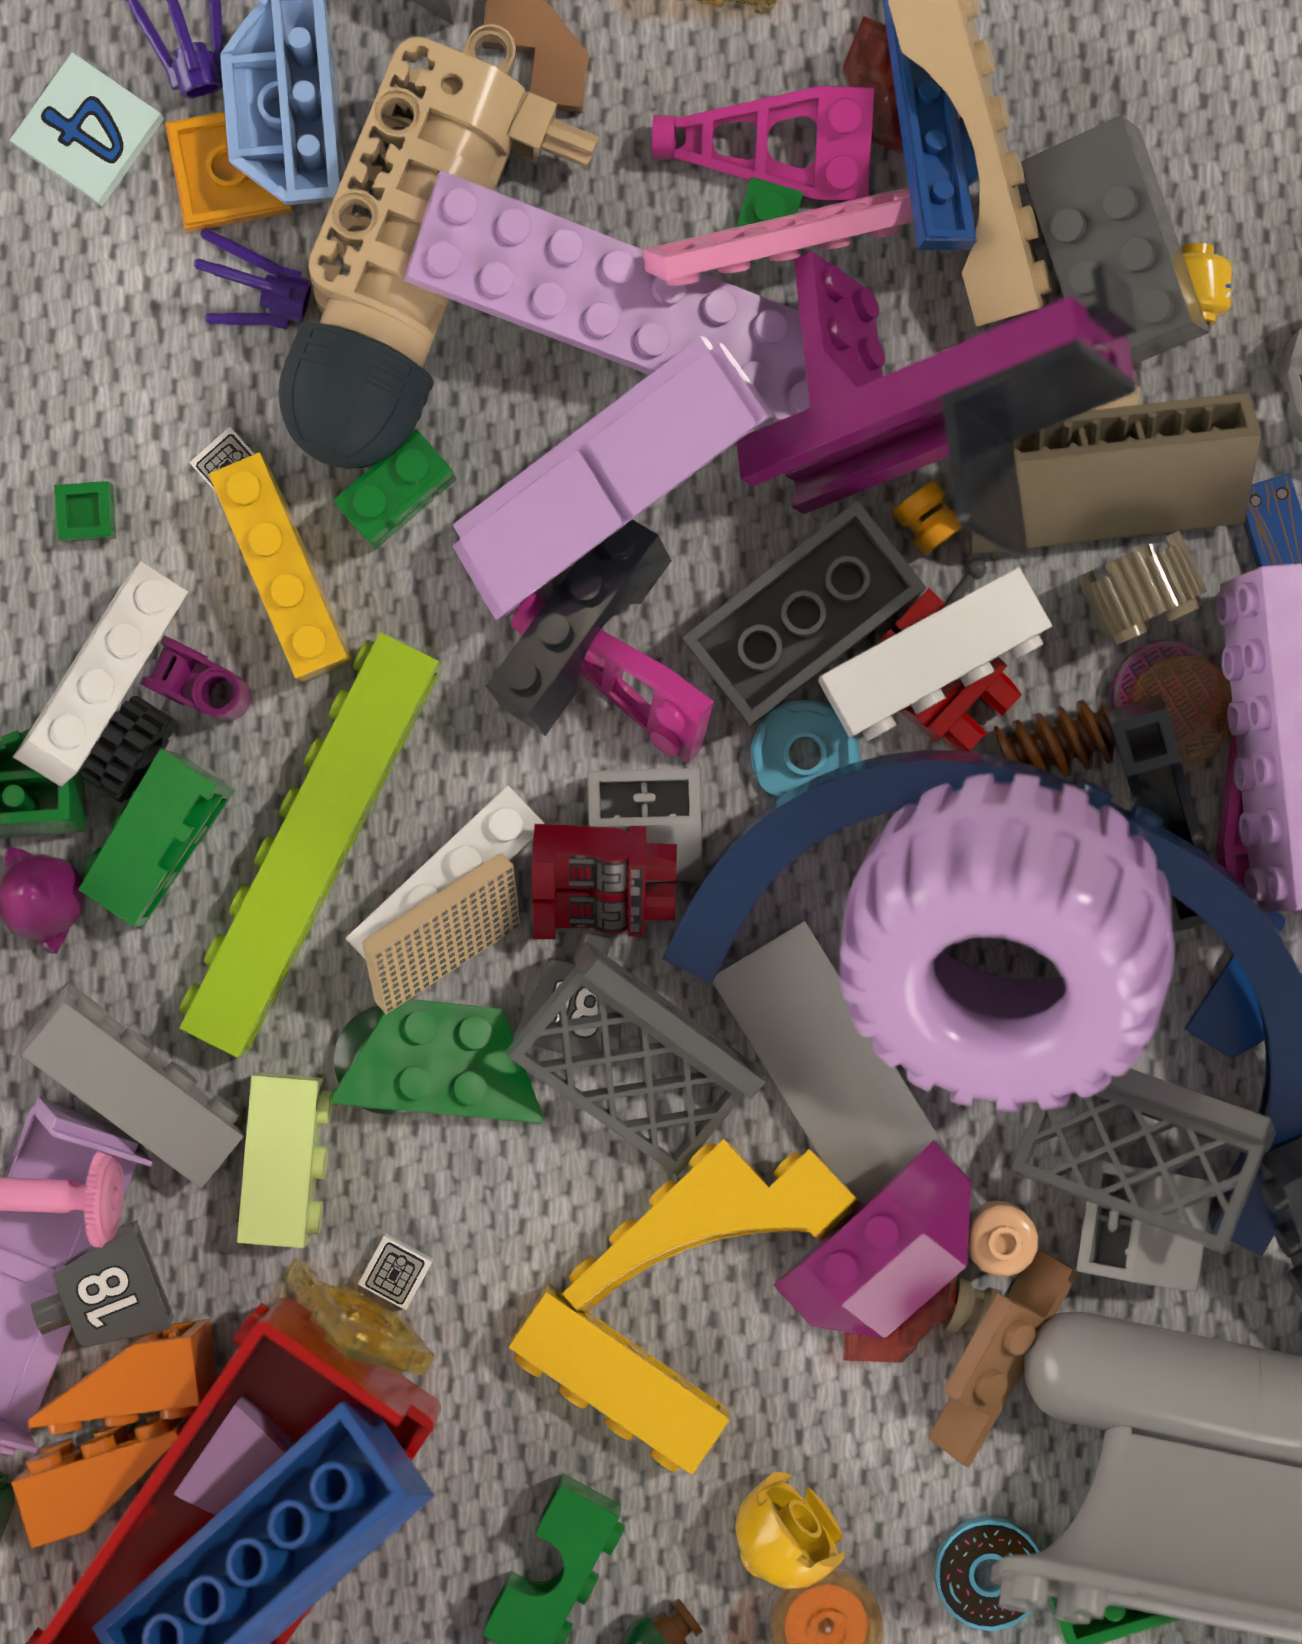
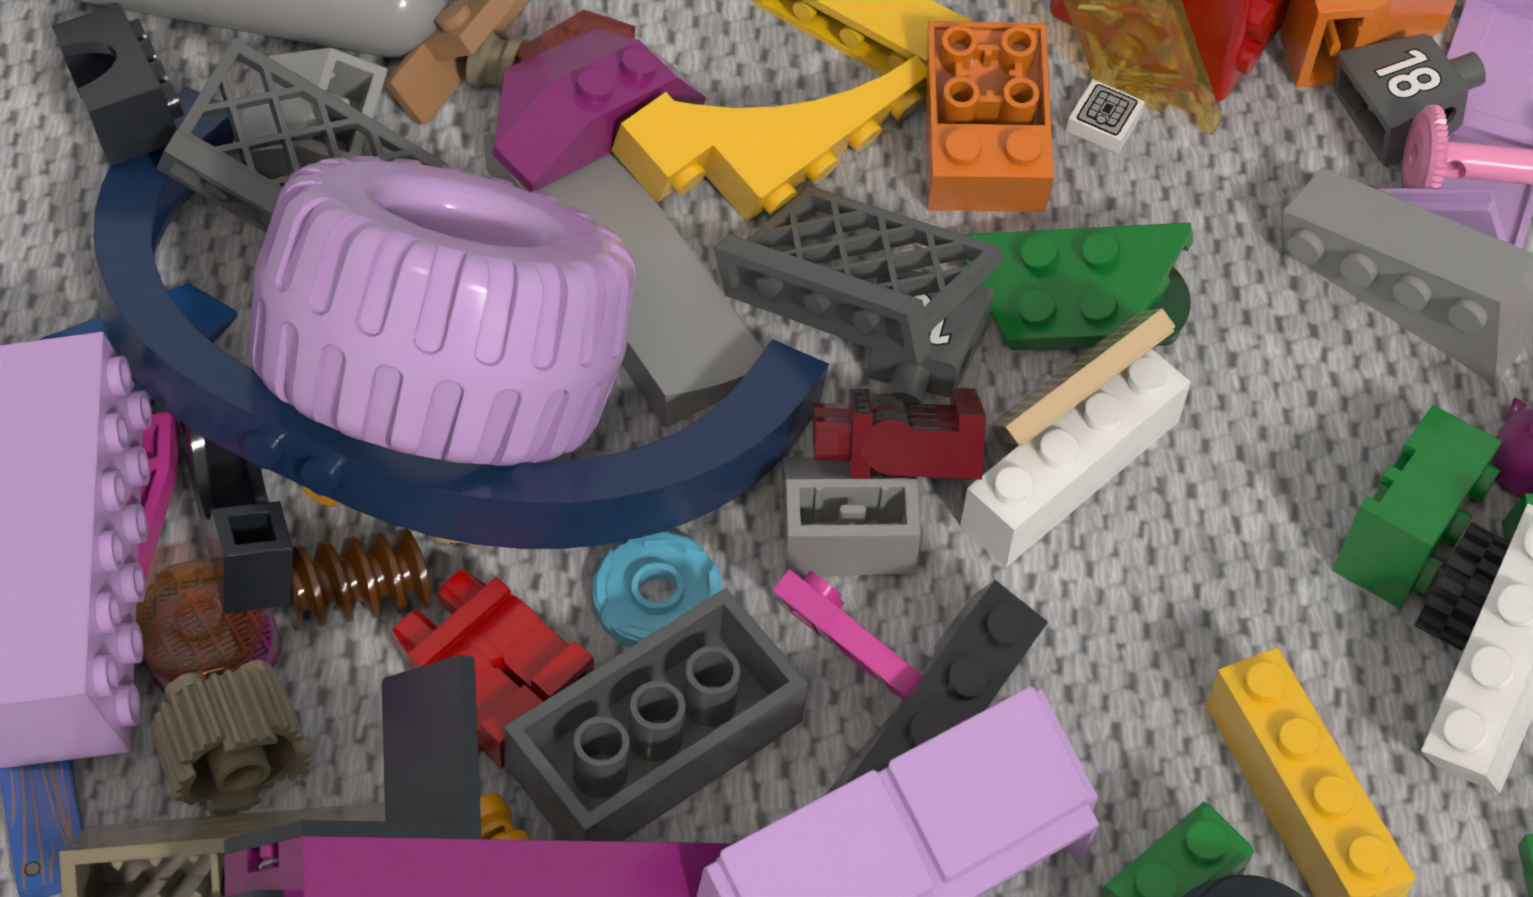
camera: 175 degrees right, 30 degrees down
(189, 680) = (1397, 671): magenta piece -> none
(283, 1160) = (1235, 206): yellowish green brick -> none
(310, 846) = (1232, 508): lime brick -> none
(510, 1246) = (988, 117): none -> orange slope
(934, 654) = (520, 633): white brick -> none
(1001, 1239) = (459, 113): light nougat head -> none

